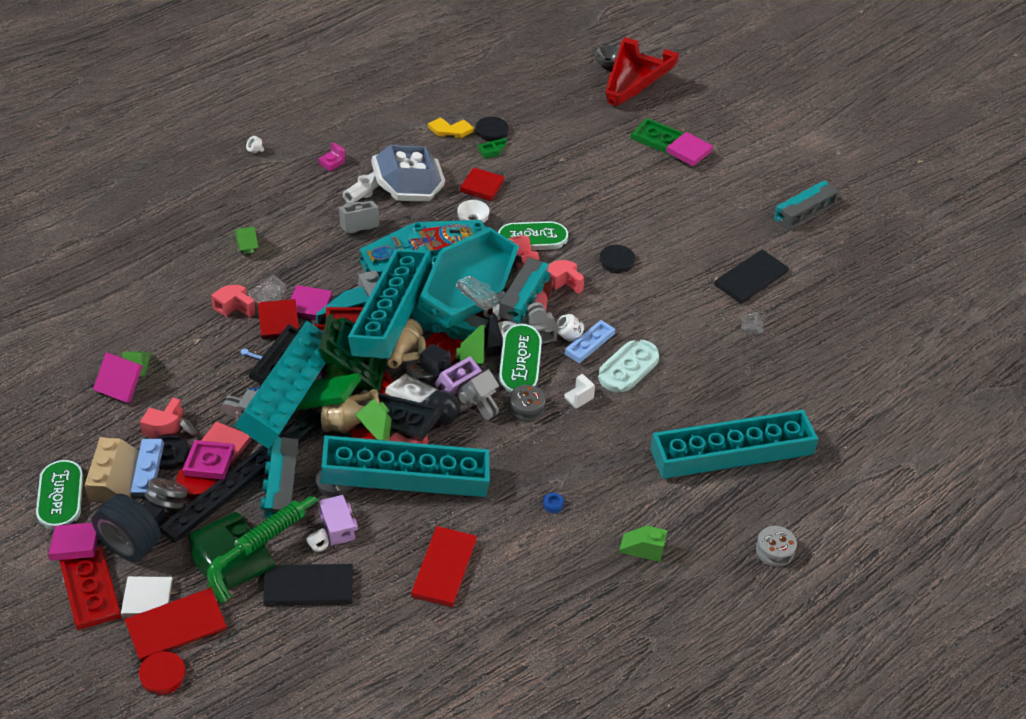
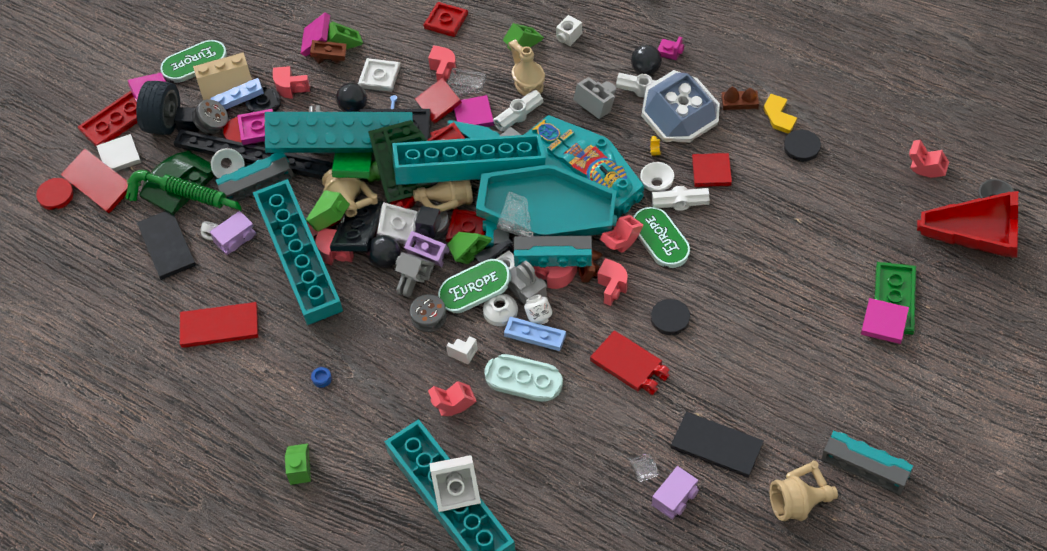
camera: 75 degrees right, 10 degrees up
(153, 372) = (327, 50): none -> copper tile
(171, 284) = (445, 19): none -> red tile
(187, 426) = (291, 99): light grey piece -> none
(205, 353) = (379, 75): none -> white tile
(229, 375) = (351, 97): none -> black piece
(243, 497) = (236, 162): none -> white piece
(262, 207) = (569, 30): none -> white brick
(300, 246) = (526, 73): none -> tan piece
(333, 270) = (518, 110): none -> white piece
(339, 172) = (646, 59): none -> black piece
(422, 137) = (736, 100): none -> copper tile
(433, 206) = (655, 146): none -> yellow piece
(492, 149) = (772, 158): green tile -> none
(502, 209) = (680, 198): none -> white piece
(551, 361) = (500, 316): none -> white piece
(557, 73) = (927, 163): none -> coral brick
(633, 412) = (453, 400): none -> coral brick
(650, 296) = (629, 363): none -> red tile
(736, 422) = (455, 483): none -> white slope
(787, 311) = (675, 492): none -> lavender brick
(822, 246) = (795, 498): none -> tan piece

